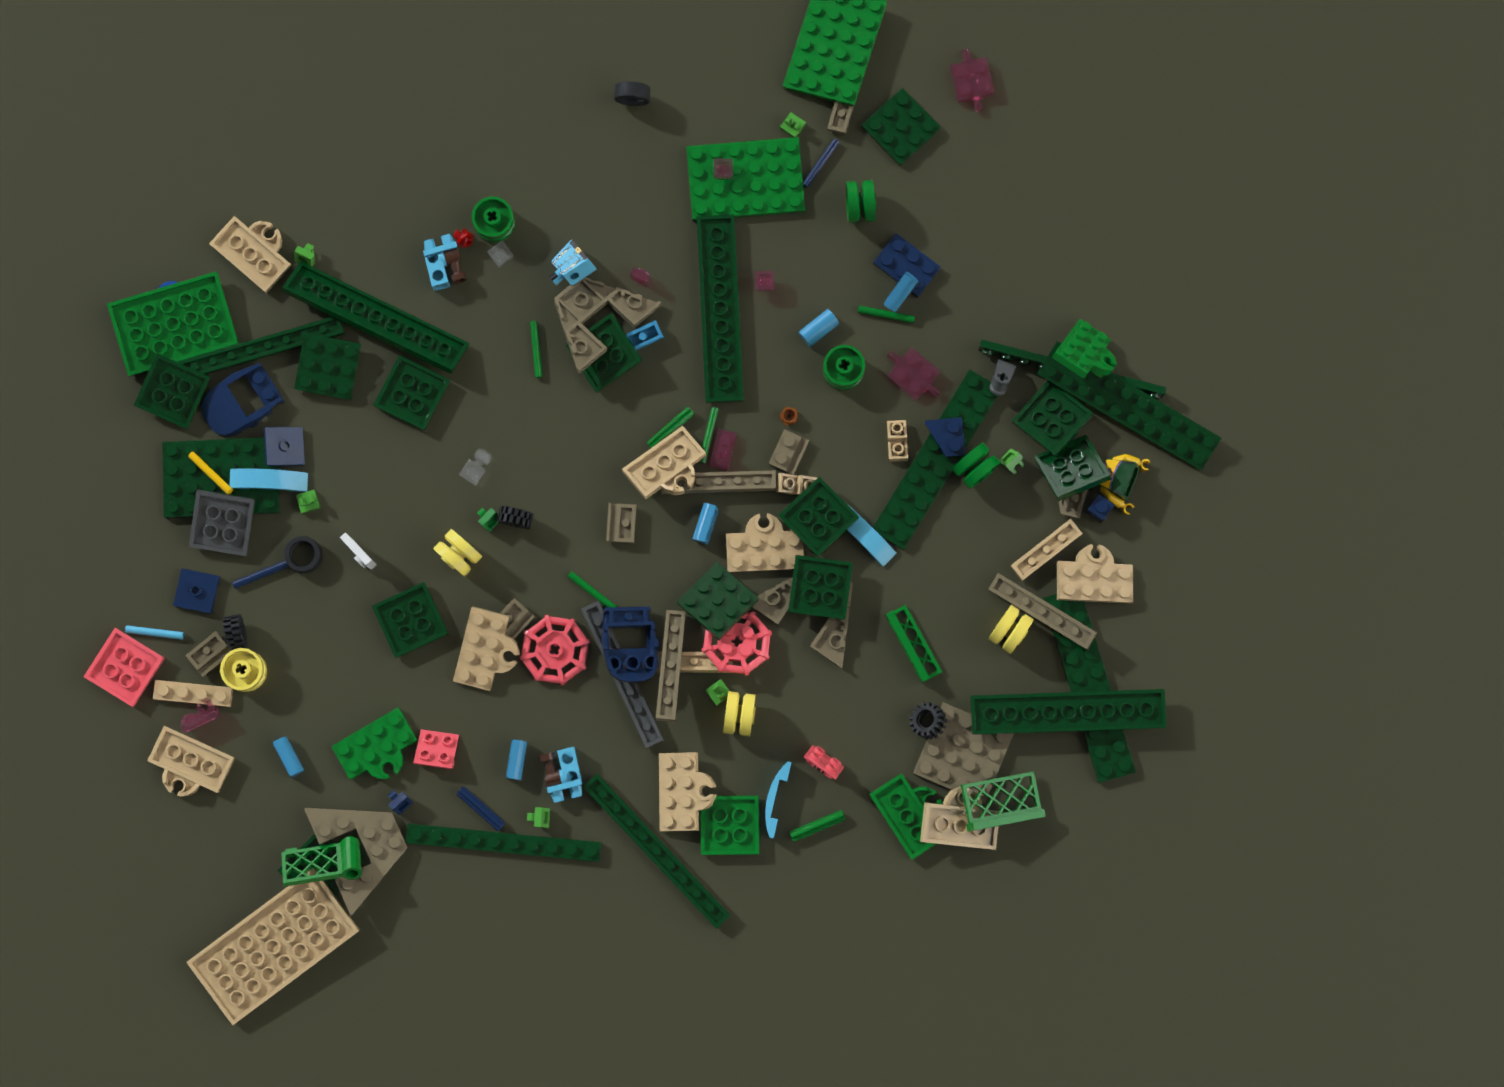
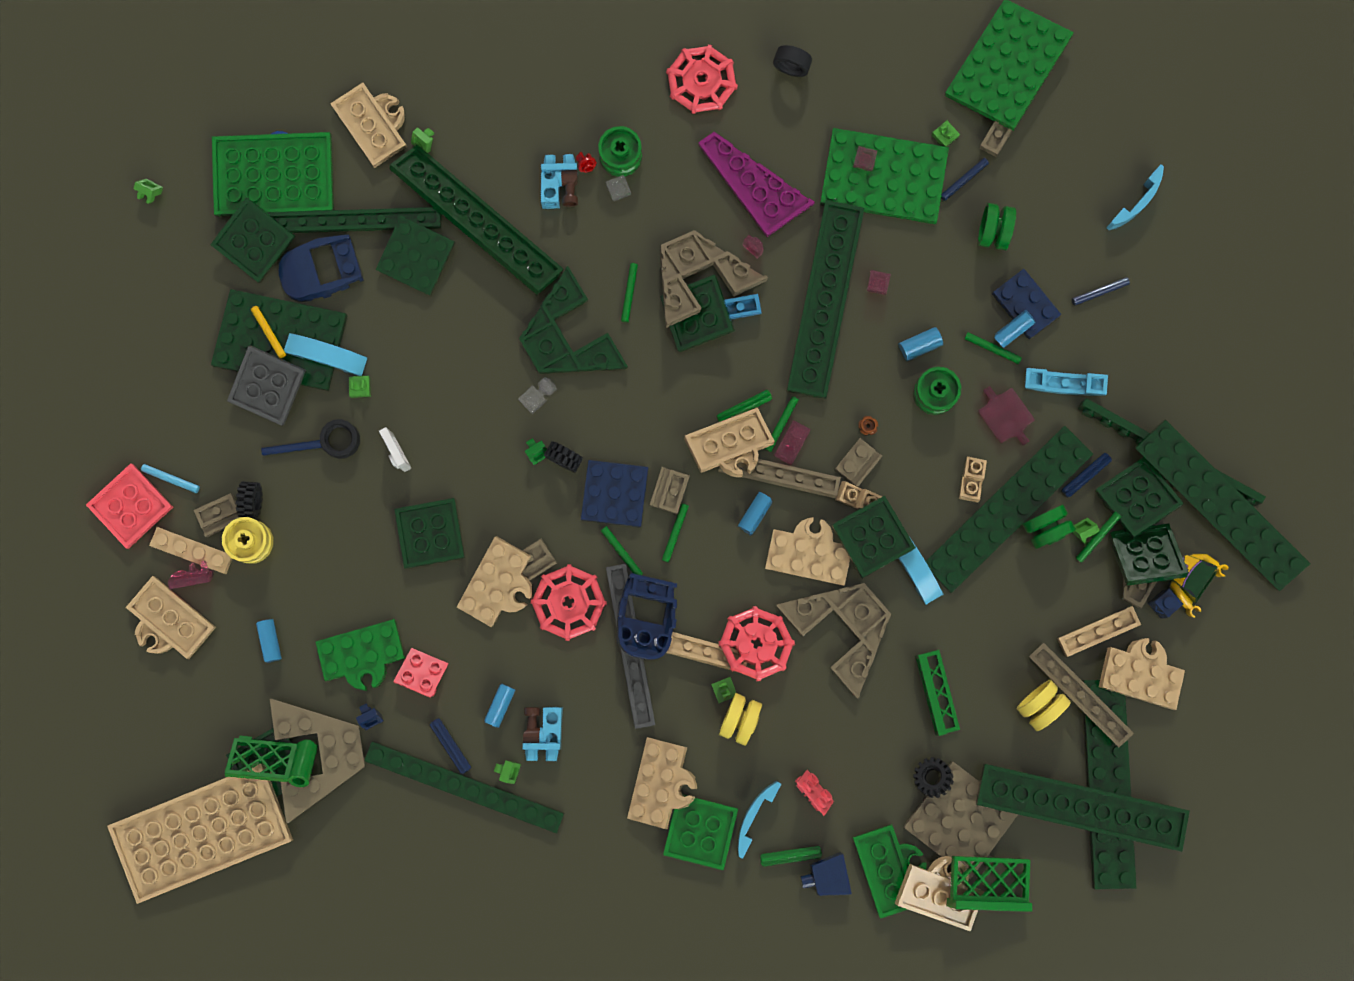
camera: 15 degrees right, 0 degrees up
(58, 367) = (147, 188): none -> bright green tile
(196, 591) = (223, 447): dark blue plate -> none
(284, 446) = (349, 324): dark blue plate -> none
(411, 393) = (492, 304): dark green plate -> none
(457, 552) = (495, 477): light yellow wheel -> none
(473, 418) = (548, 345): none -> dark green wing
(554, 141) = (698, 89): none -> coral plate
(571, 265) = (687, 216): medium azure torso -> none
(571, 539) = (614, 493): none -> dark blue plate
(632, 222) = (759, 190): none -> magenta wing
(636, 560) = (675, 533): none -> green bar
(656, 851) = (619, 839): dark green plate -> none
(670, 666) = (682, 651): dark tan plate -> none
(717, 601) = (747, 596): dark green plate -> none
(820, 587) = (857, 610): dark green plate -> none
(855, 835) = (828, 876): none -> dark blue torso
(901, 127) = (1055, 163): dark green plate -> none
(948, 435) = (1027, 487): dark blue wing -> none
(960, 329) = (1066, 383): none -> medium azure slope
(972, 79) = (1139, 134): clear pink plate -> none
(973, 235) = (1100, 291): none -> dark blue bar
(976, 161) = (1152, 185): none -> medium azure slope
(1000, 409) = (1086, 475): none -> dark blue axle
(1002, 376) = (1096, 442): dark grey piece -> none
(1024, 463) = (1098, 537): none -> green bar
(1086, 351) = (1192, 438): green plate -> none

